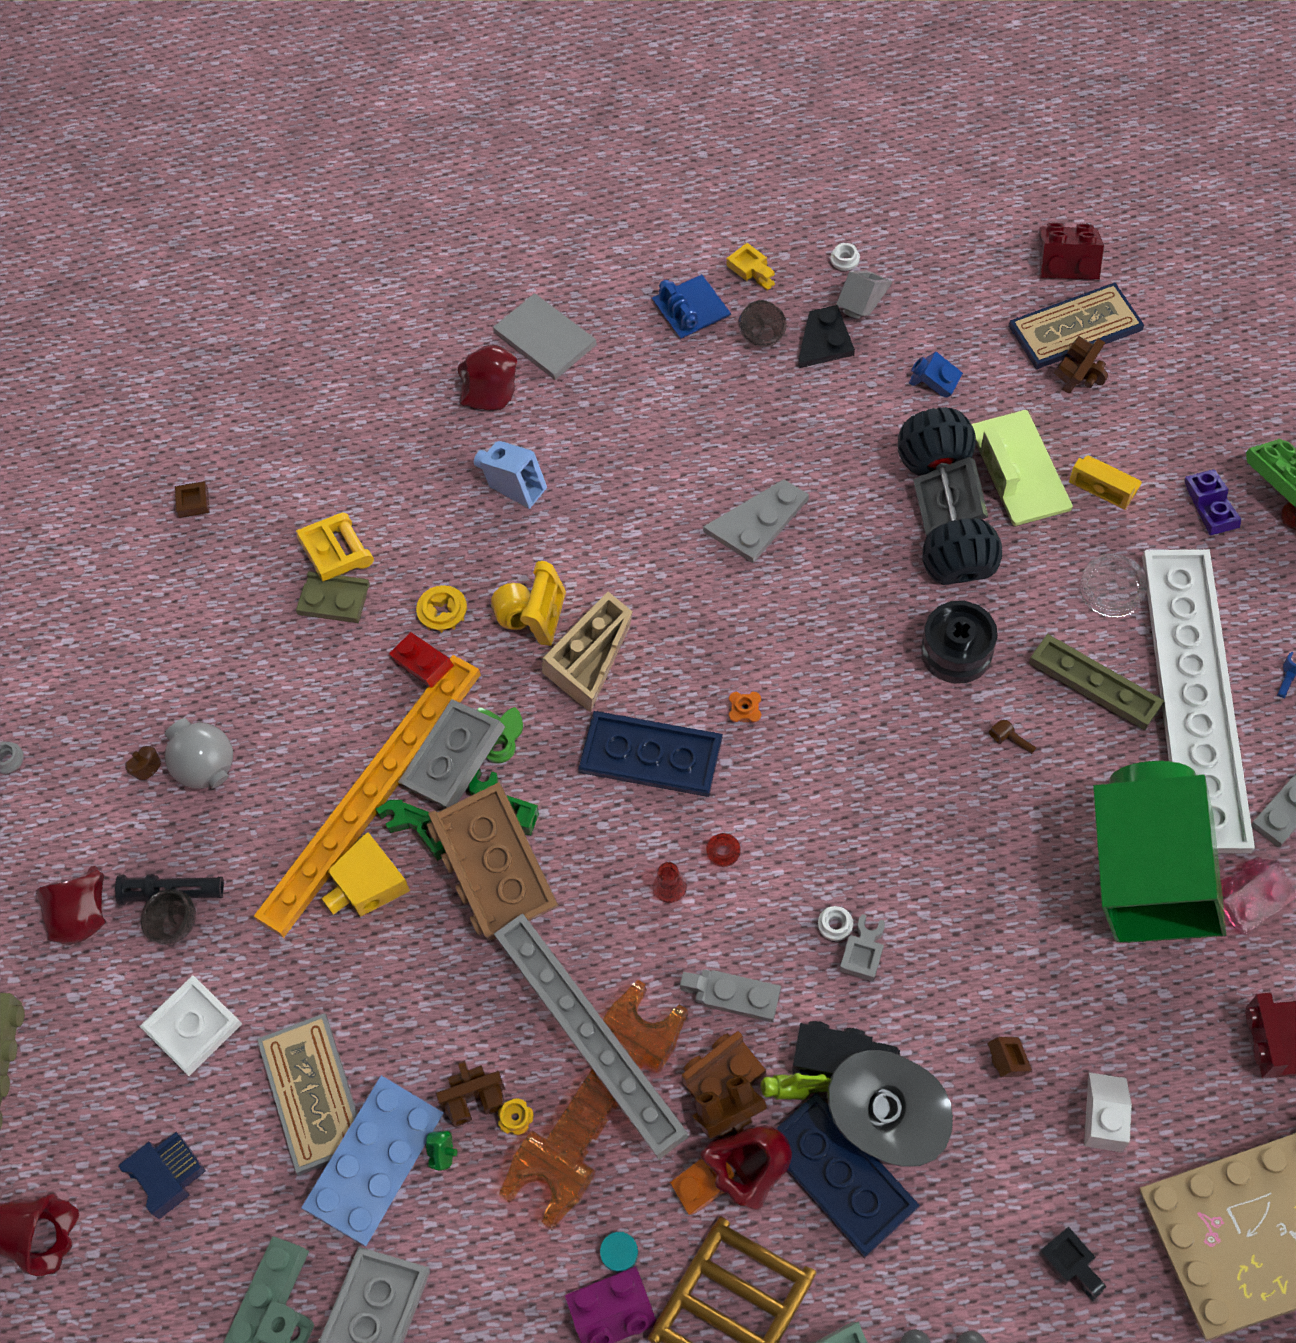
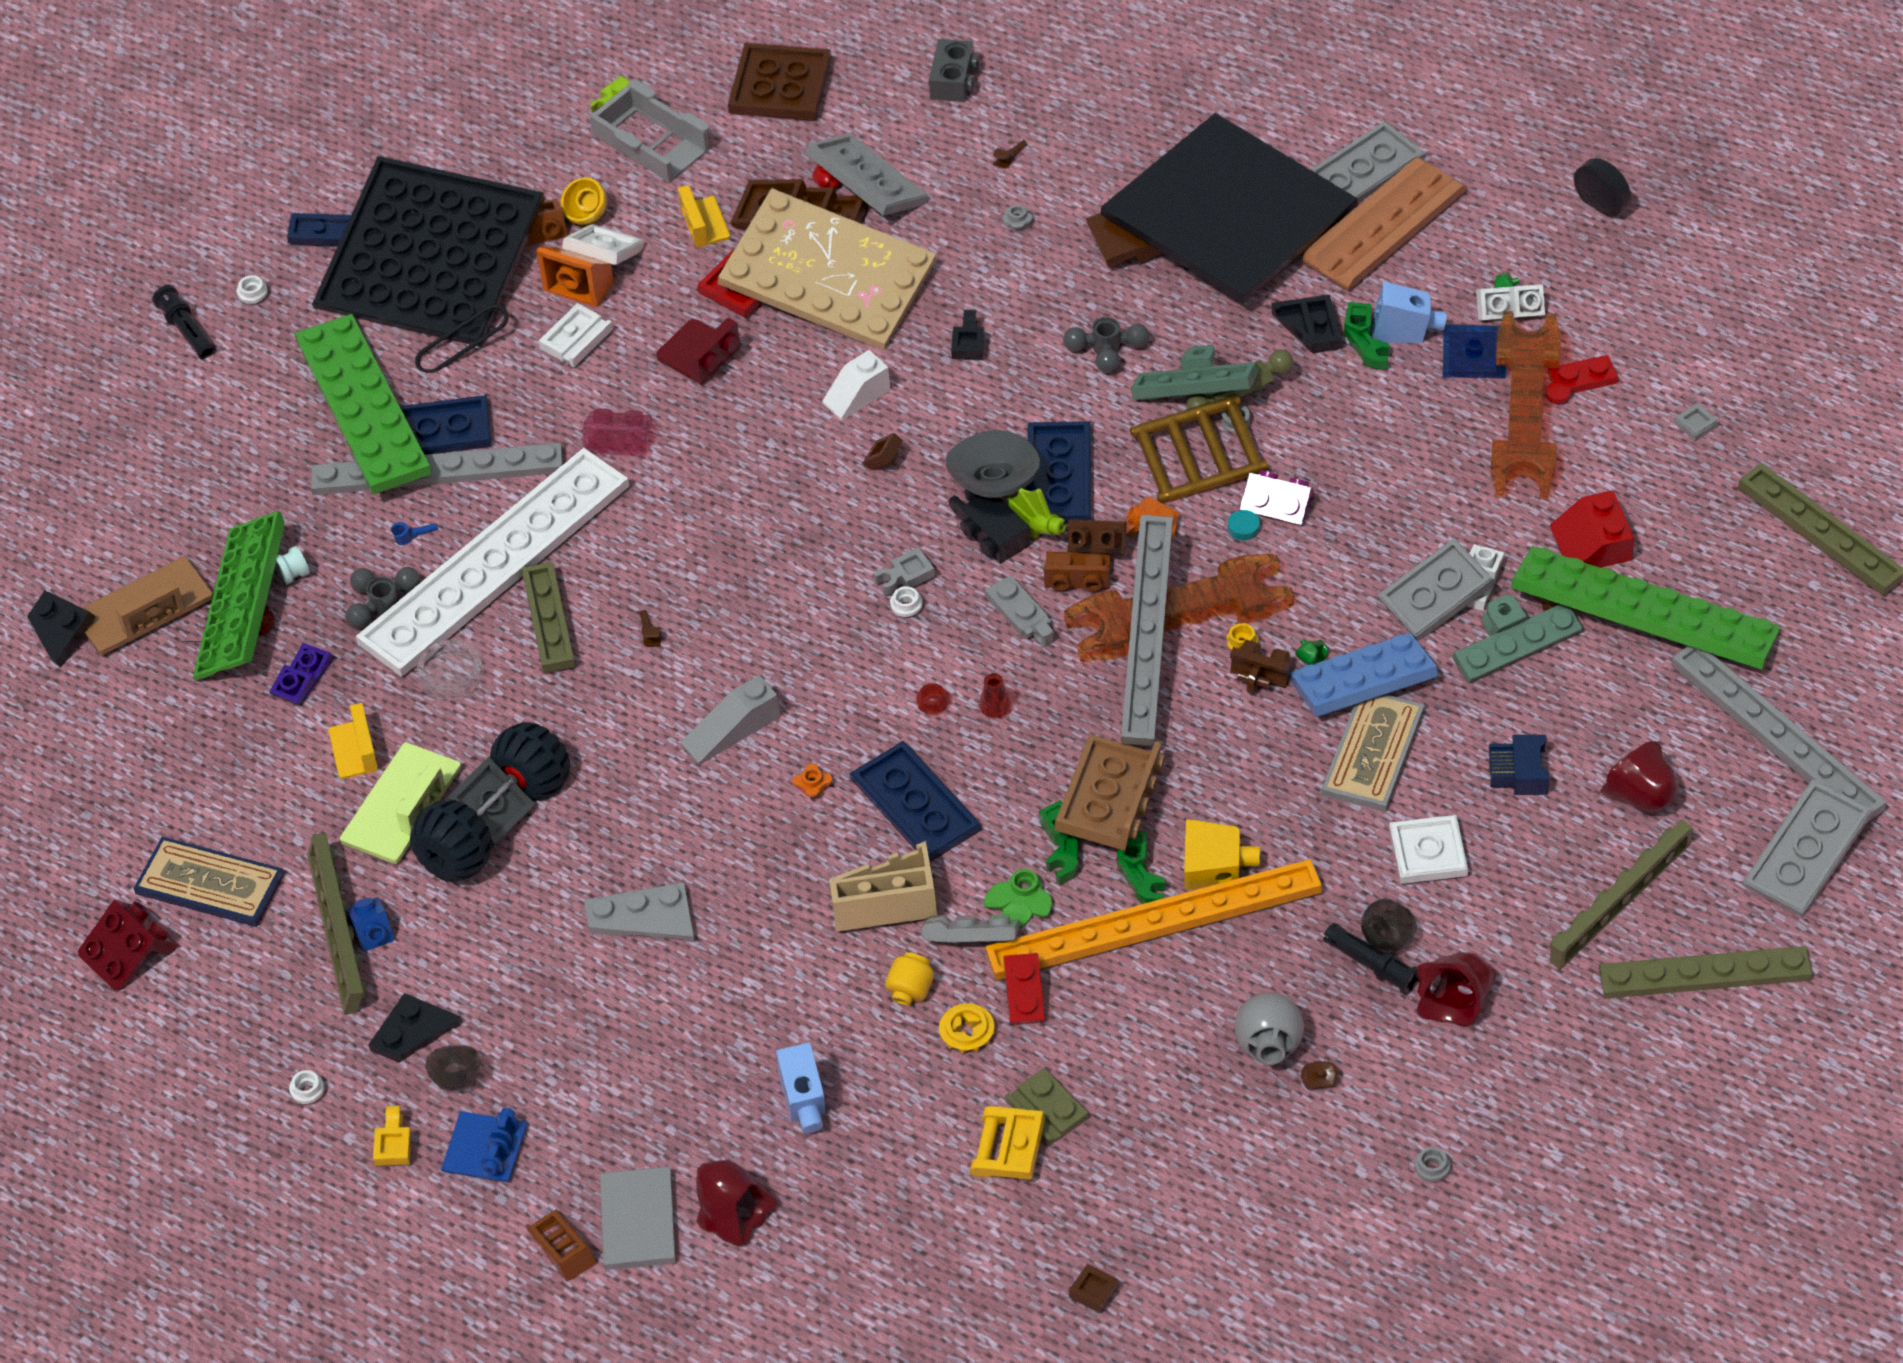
camera: 140 degrees left, 10 degrees down
(451, 754) = (1067, 889): light grey plate -> none
(499, 676) = (969, 929): none -> light grey hinge
(544, 603) = (873, 961): yellow plate -> none
(566, 294) = (573, 1261): none -> dark orange slope
(757, 1156) = (1107, 491): dark red piece -> none
(854, 706) = (733, 719): none -> light grey slope
(862, 293) = (334, 1033): light grey slope -> none
(959, 642) = (612, 700): black wheel -> none
(965, 360) = (334, 914): none -> olive plate
(1086, 354) = (255, 835): reddish brown hips -> none
(1158, 854) = (662, 454): green container -> none
(1264, 598) = (381, 593): none -> dark grey piece

